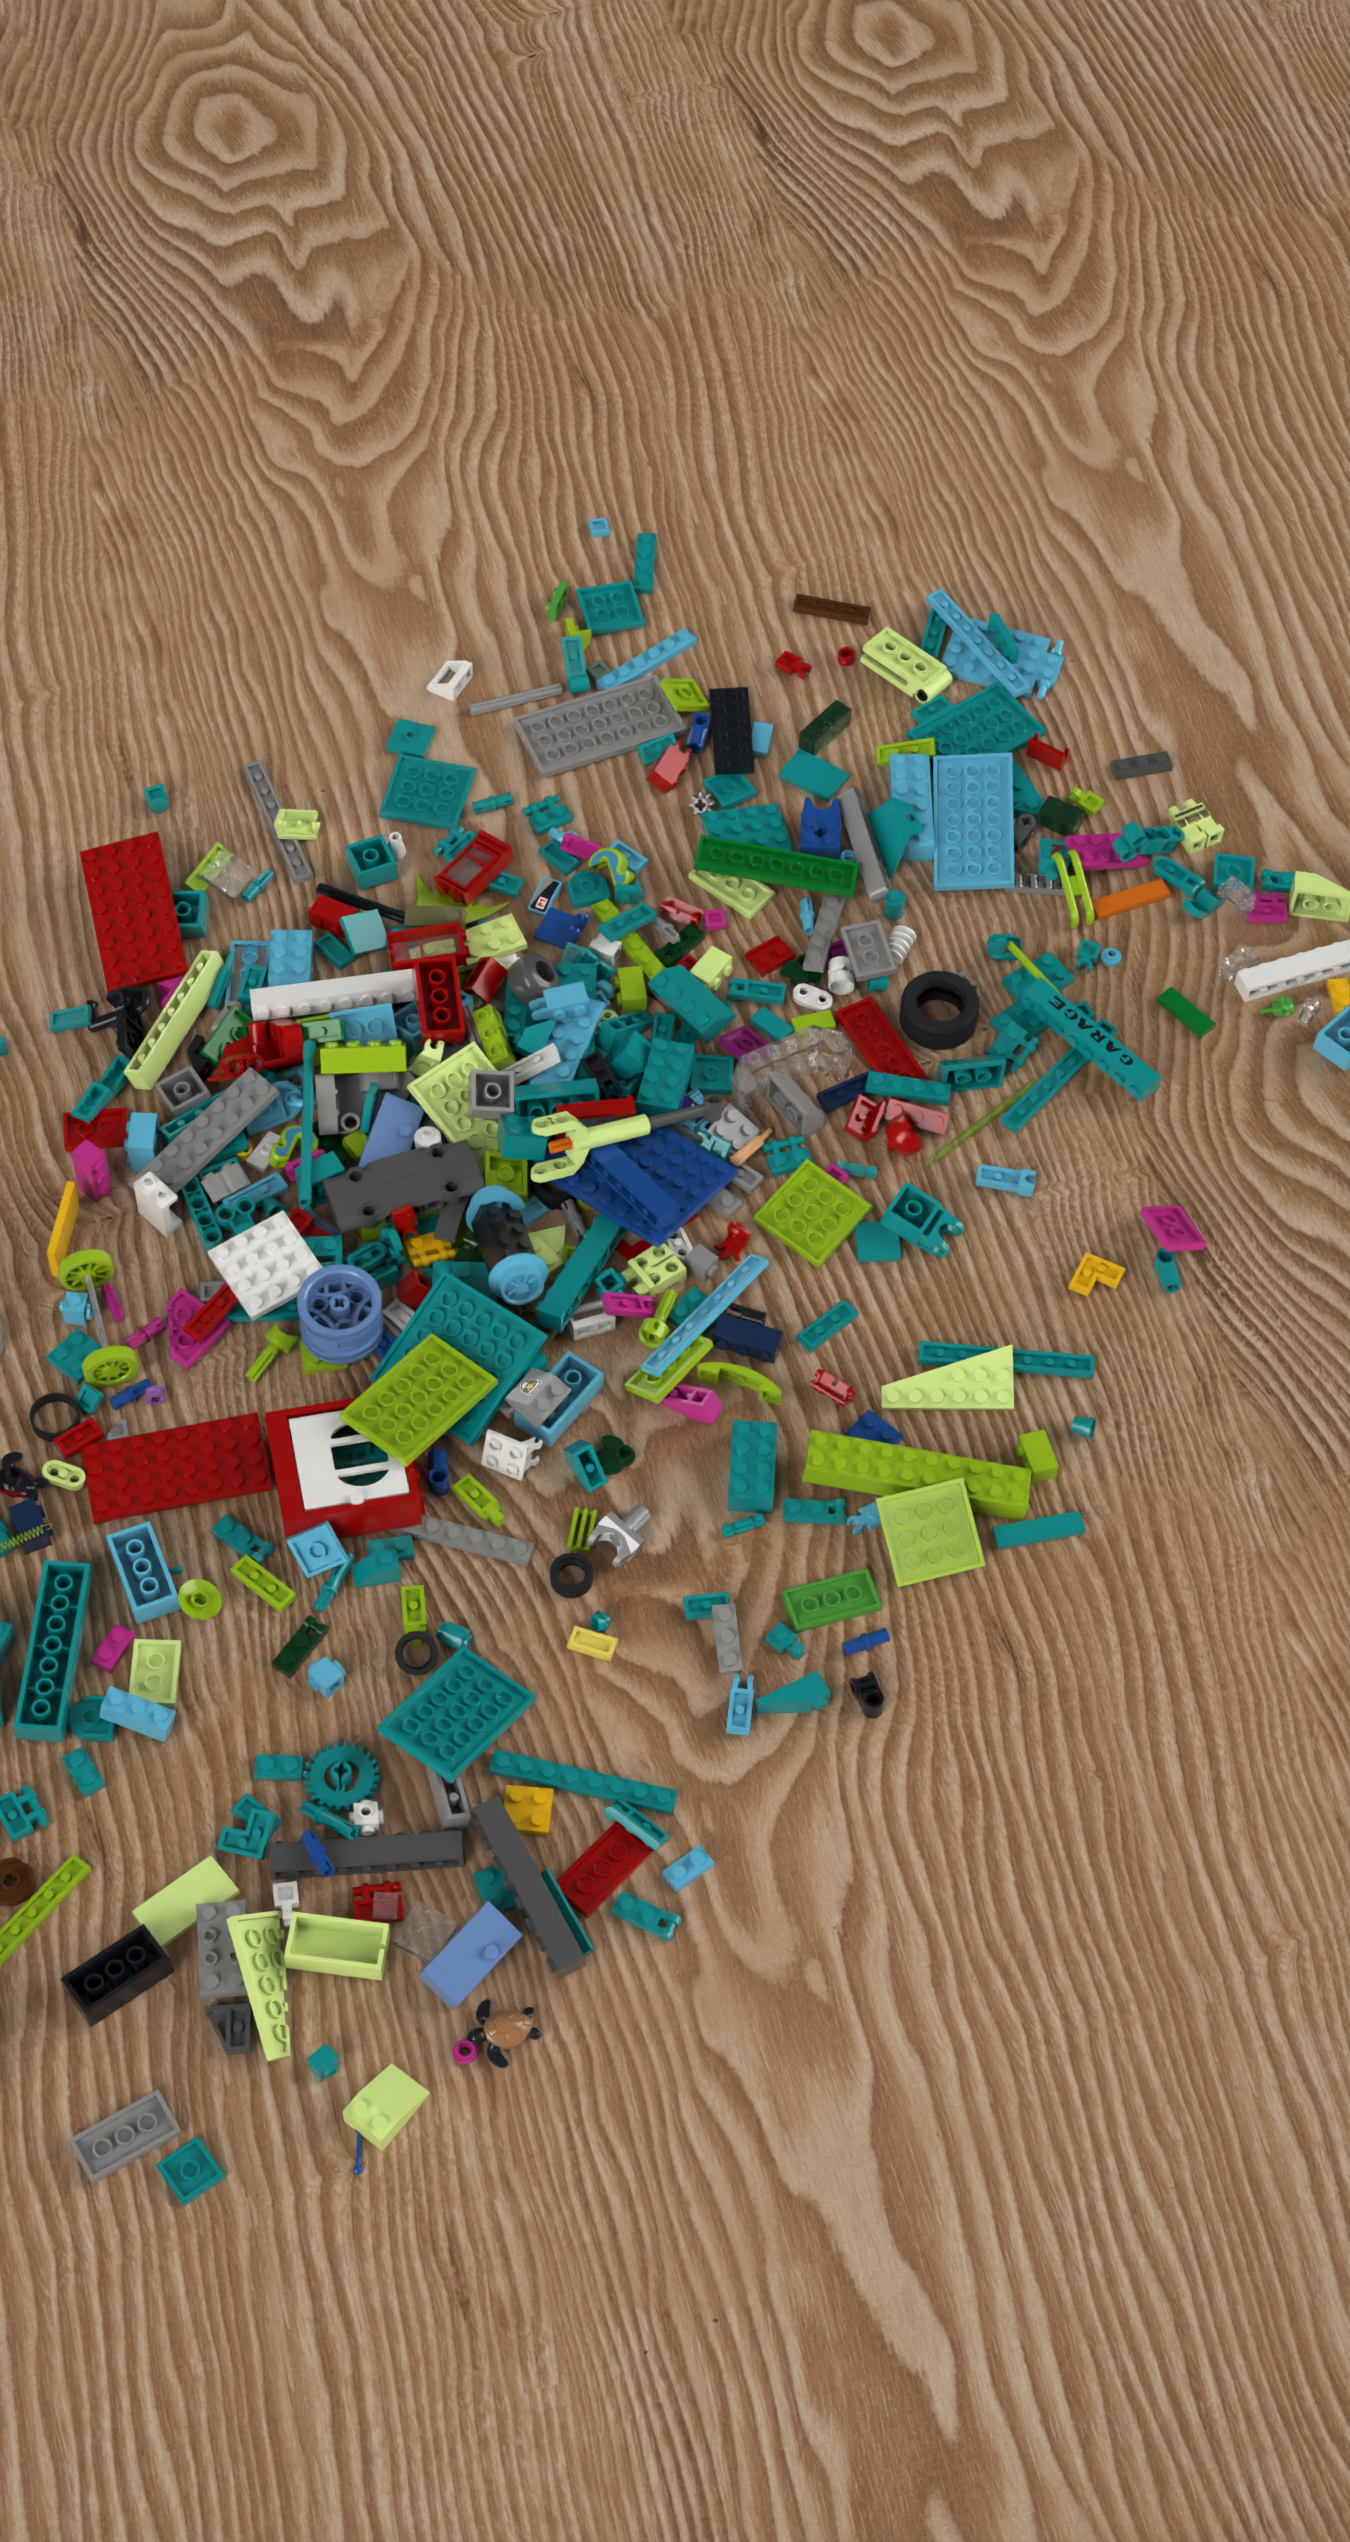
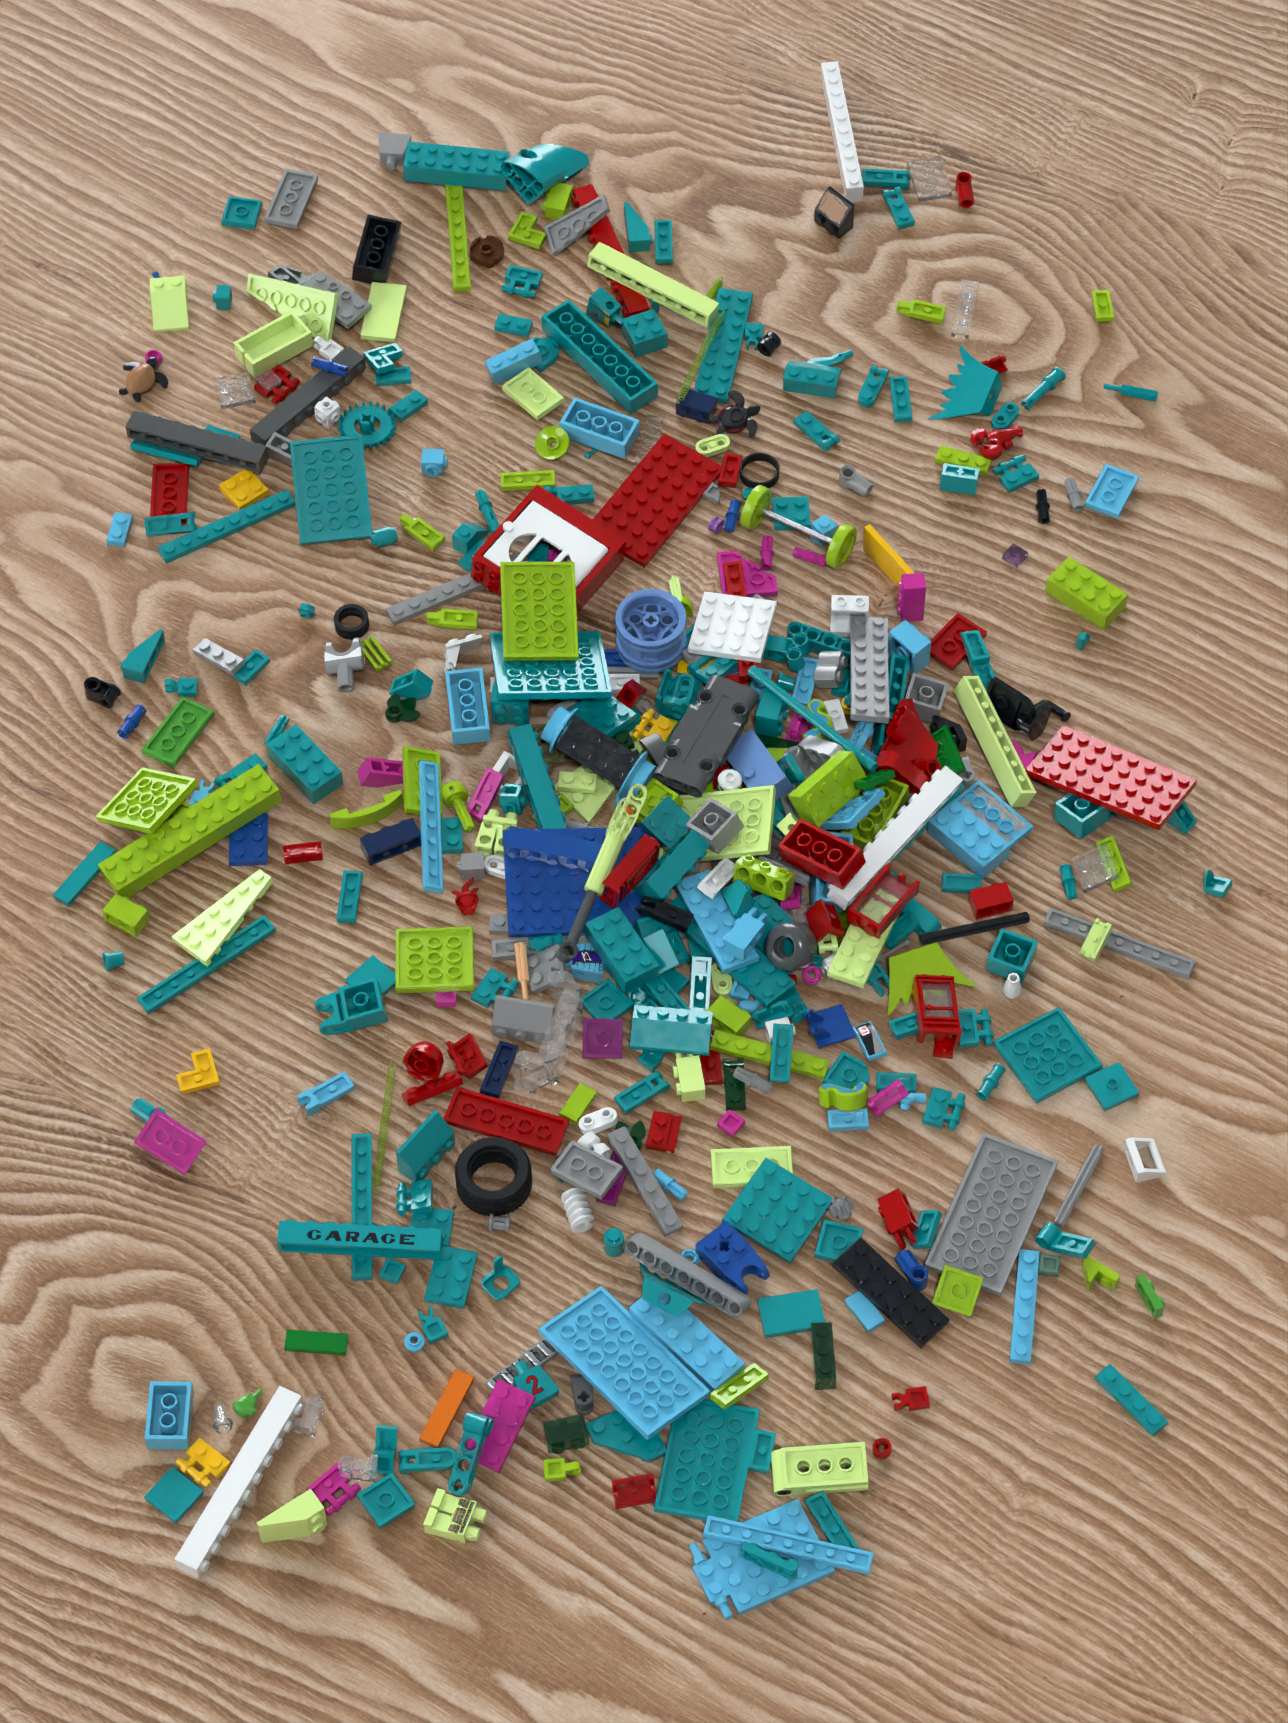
camera: 140 degrees right, 0 degrees up
(70, 1018) = (1064, 694): teal tile -> none
(113, 1648) = (572, 387): dark pink plate -> none
(221, 983) = (998, 789): teal axle -> none
(253, 979) = (976, 801): teal plate -> none
(299, 1647) = (468, 468): dark green plate -> none
(317, 1549) = (506, 510): medium azure plate -> none
(323, 1816) = (349, 395): teal axle -> none
(364, 932) = (952, 902): teal tile -> none
(404, 1221) = (678, 713): red plate -> none
(433, 915) = (904, 939): olive slope -> none
(433, 1651) = (393, 507): black tyre -> none
(438, 1472) = (493, 614): blue piece -> none
(469, 1955) = (195, 390): medium blue brick -> none
(537, 1396) = (470, 673): light grey slope -> none
(592, 1643) = (293, 600): light yellow tile -> none
(598, 527) = (1205, 1403): medium azure tile -> none
(610, 607) = (1105, 1328): teal plate -> none
(628, 893) = (811, 1090): teal plate -> none
(645, 1916) = (119, 489): teal plate -> none
(681, 911) = (767, 1106): hinge -> none
(740, 1707) = (174, 630): medium azure hinge -> none
(748, 1313) = (406, 855): black hinge -> none
(771, 1024) = (606, 1078): teal tile -> none
(776, 866) = (724, 1186): green plate -> none
(832, 609) = (941, 1488): reddish brown tile -> none
(858, 1169) = (437, 1018): teal axle -> none
(908, 1088) = (458, 1096): teal plate -> none
(1027, 963) = (455, 1269): lime bar -> none
(1074, 887) = (491, 1361): lime piece -> none
(1141, 765) = (550, 1548): dark grey plate -> none
(1283, 881) = (335, 1534): teal plate -> none

